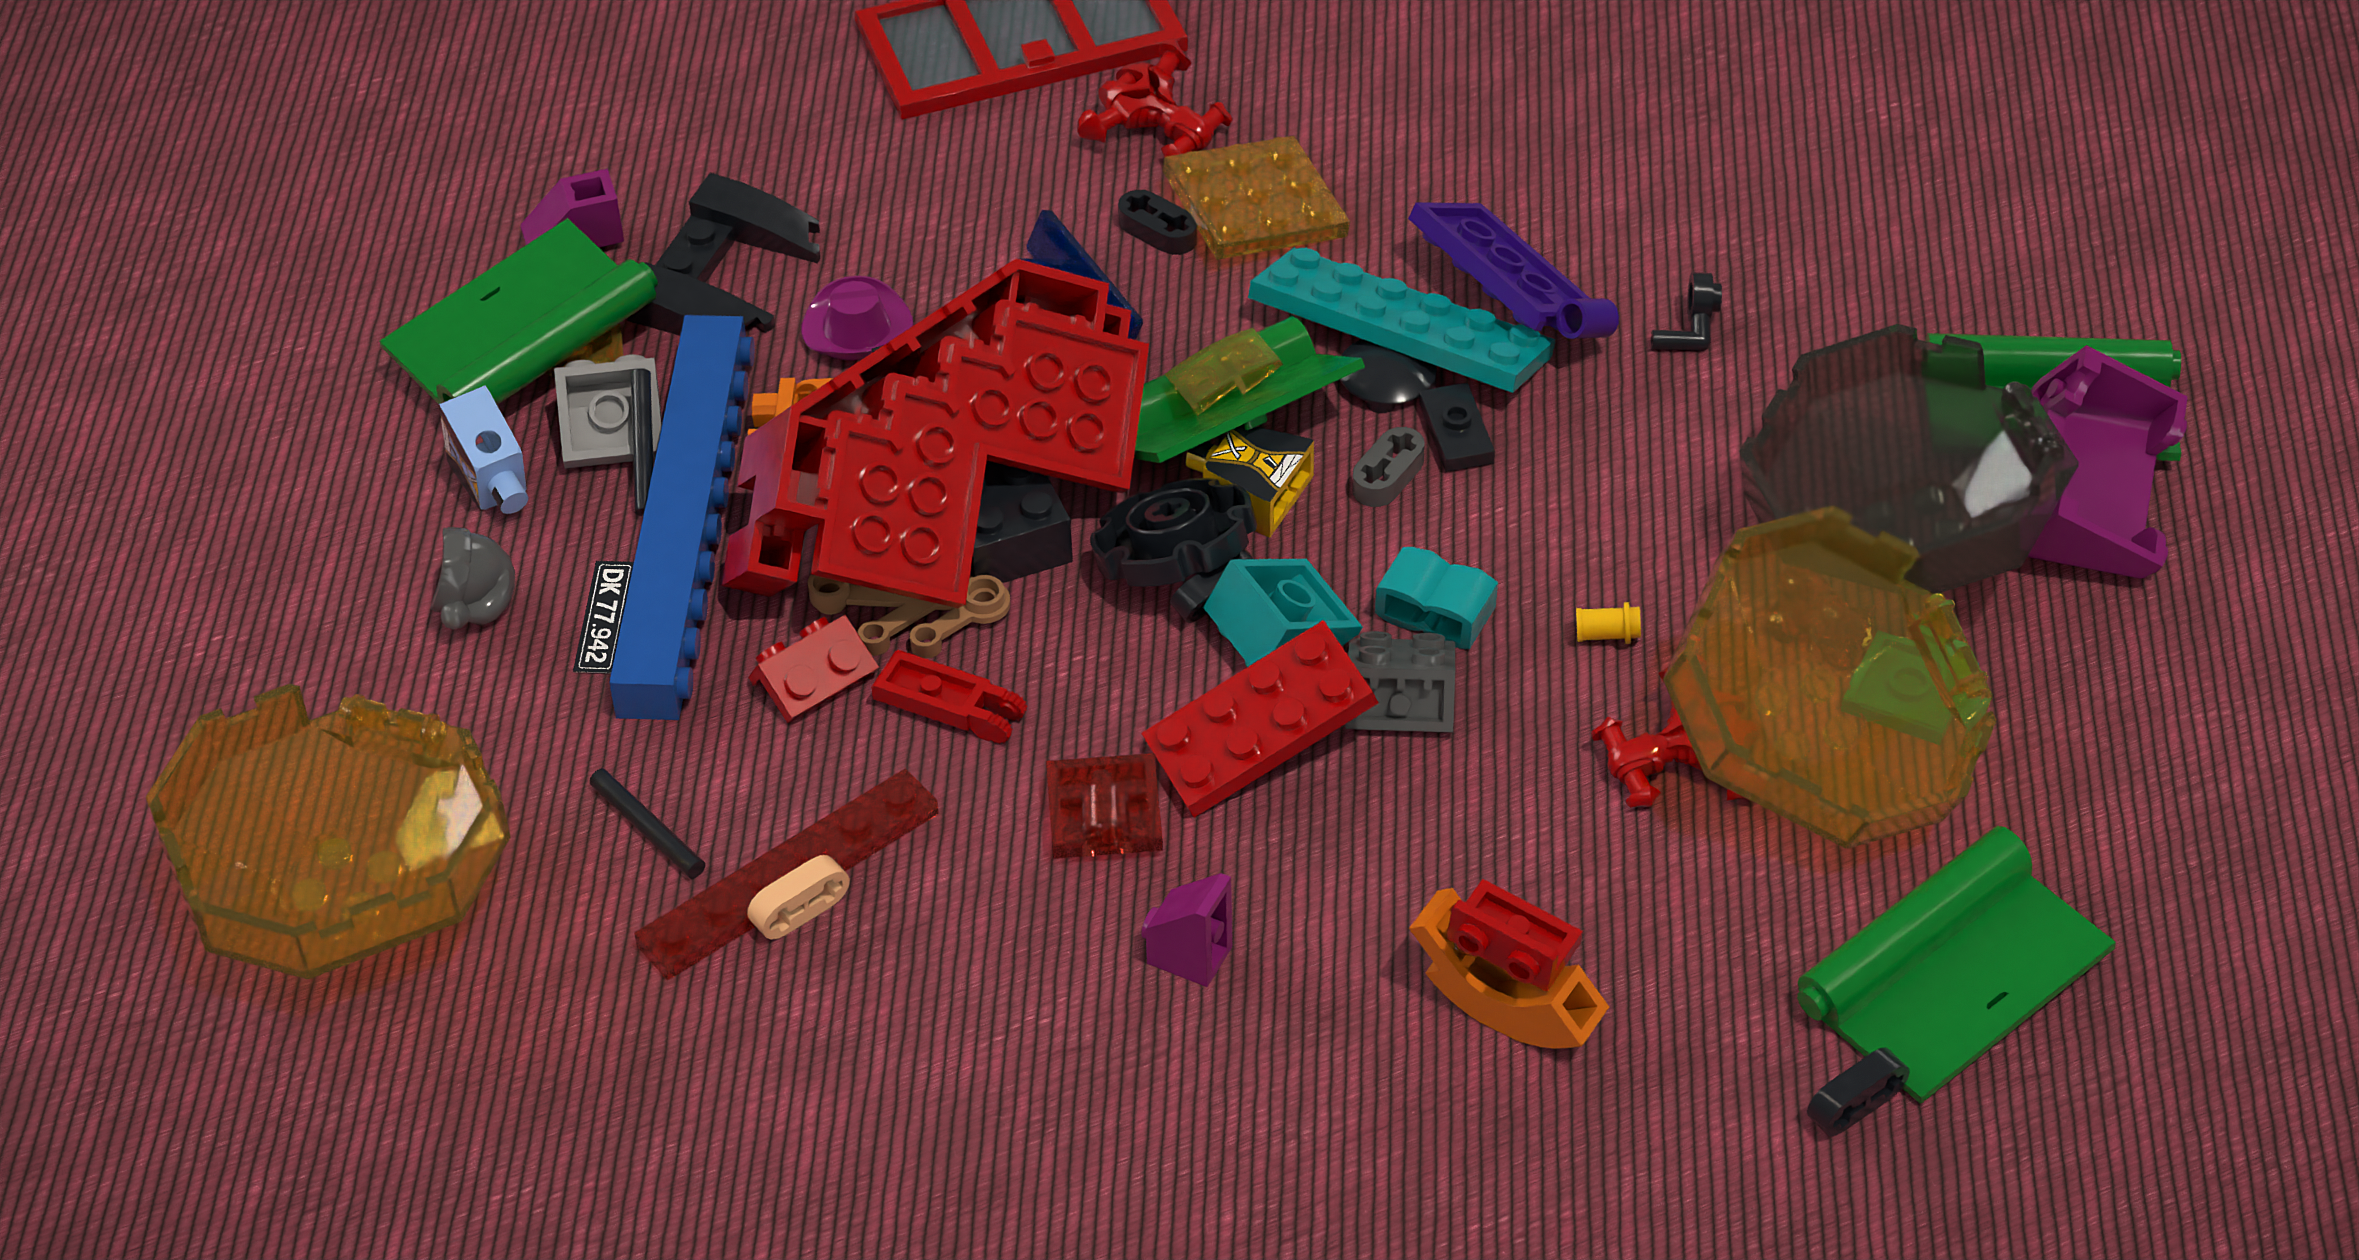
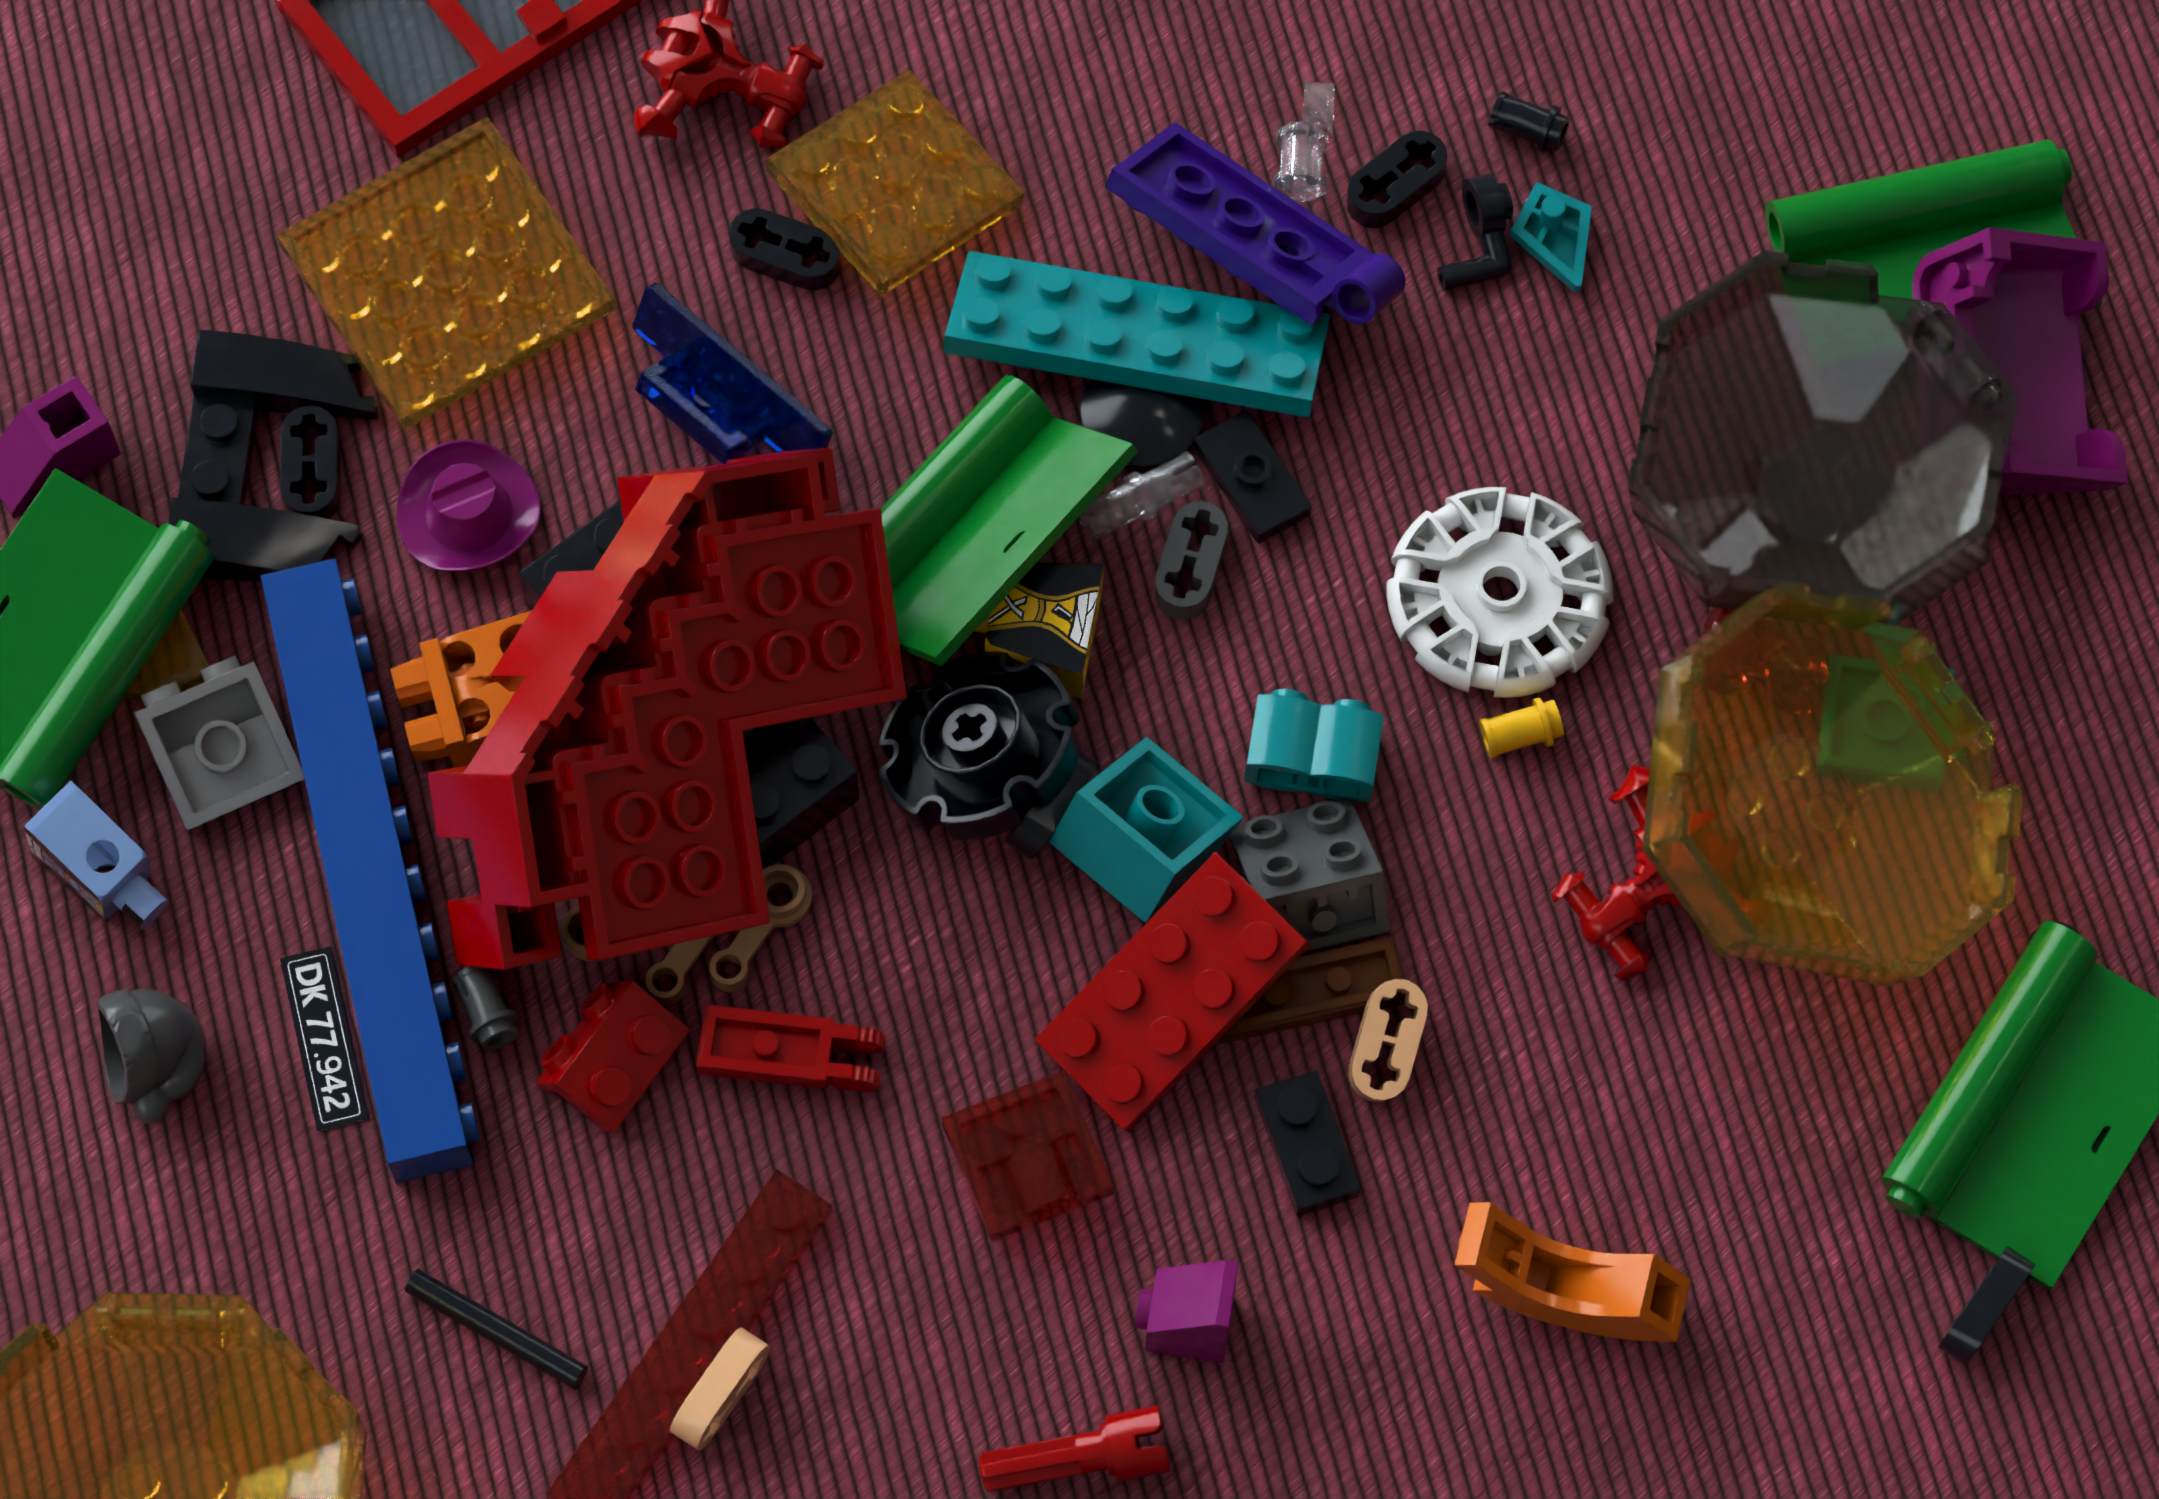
camera: 20 degrees left, 20 degrees up
(642, 436) = (280, 780): black bar -> none
(731, 627) = (490, 1018): none -> dark grey pin
(765, 277) = (324, 464): none -> black beam
(904, 183) = (446, 272): none -> clear yellow plate
(1100, 1010) = (1110, 1448): none -> red piece
(1229, 363) = (964, 493): clear yellow slope -> none
(1331, 854) = (1307, 1143): none -> black plate
(1364, 418) = (1141, 496): none -> clear pin
(1378, 757) = (1322, 989): none -> reddish brown tile
(1432, 801) = (1403, 1044): none -> light nougat beam
(1513, 935) = (1574, 1242): red bracket -> none
(1577, 233) = (1304, 143): none -> clear connector
(1616, 501) = (1492, 624): none -> white plate
(1639, 272) = (1388, 169): none -> black beam
(1751, 328) = (1555, 233): none -> teal piece
(1765, 262) = (1529, 121): none -> black pin

